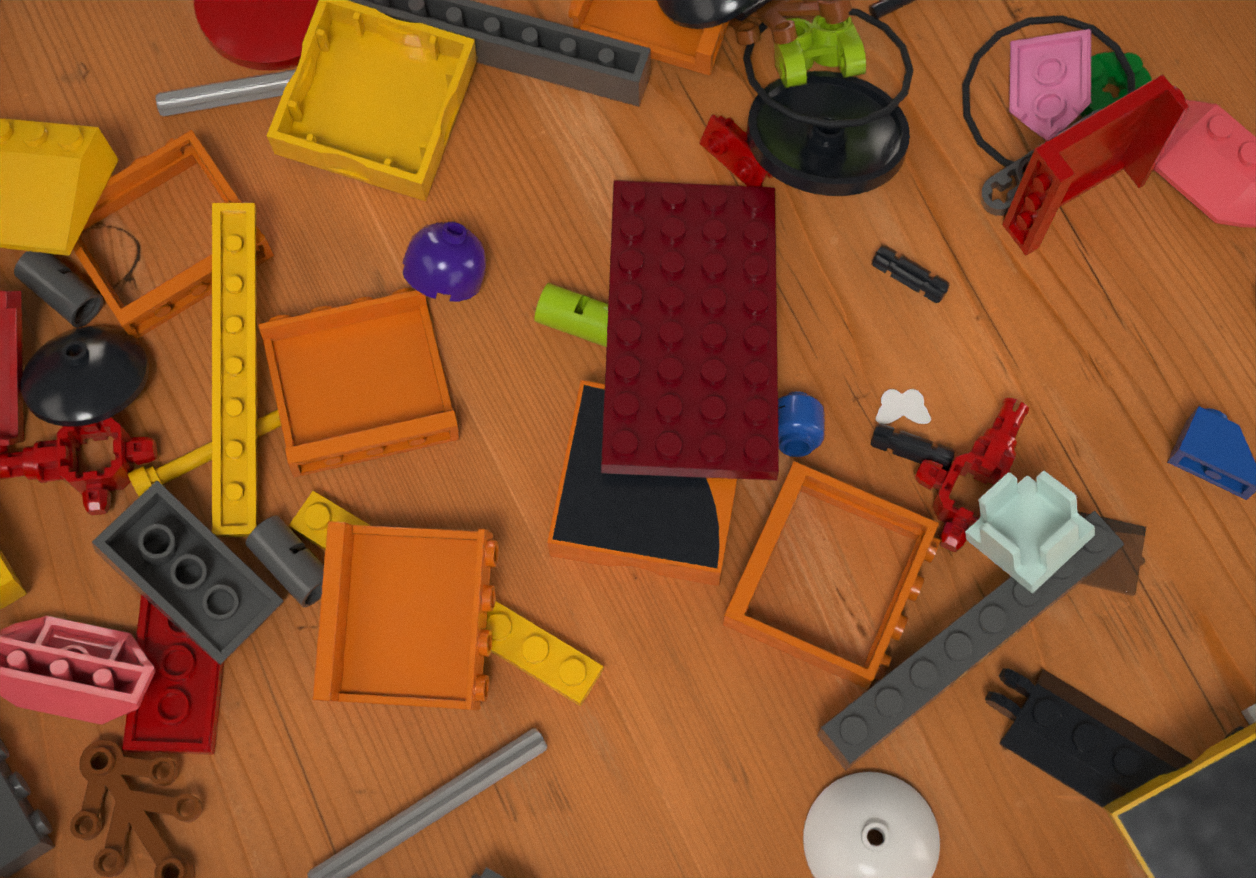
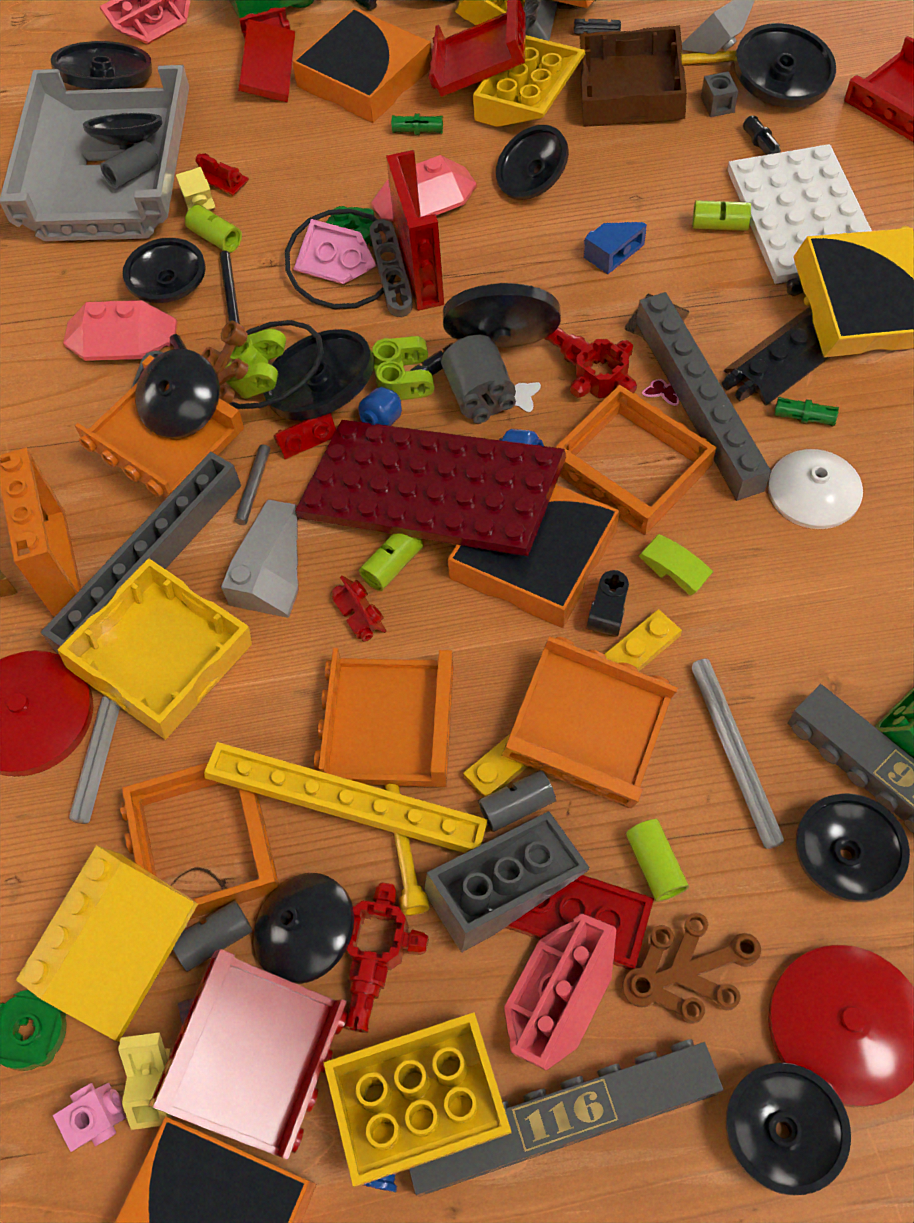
camera: 70 degrees left, 10 degrees down
(254, 743) = (657, 860): none -> lime pin
(445, 261) = (315, 628): dark purple cylinder -> none
(511, 294) = (353, 598): none -> red hinge
(531, 174) = (265, 565): none -> light grey wedge
(582, 601) = (608, 607): none -> black piece
(645, 119) = (252, 485): none -> flat silver bar
(677, 672) = (680, 564): none -> lime slope
(804, 228) = (380, 407): none -> blue head
(888, 333) = (478, 377): none -> dark grey cylinder
(909, 225) = (389, 359): none -> lime piece
(911, 446) = (555, 395): black axle -> none
(970, 331) = (504, 312): none -> black dish
(976, 587) = (660, 388): none -> dark red sticker
(999, 801) = (806, 411): none -> green pin
(1029, 527) = (644, 329): light aqua panel -> none

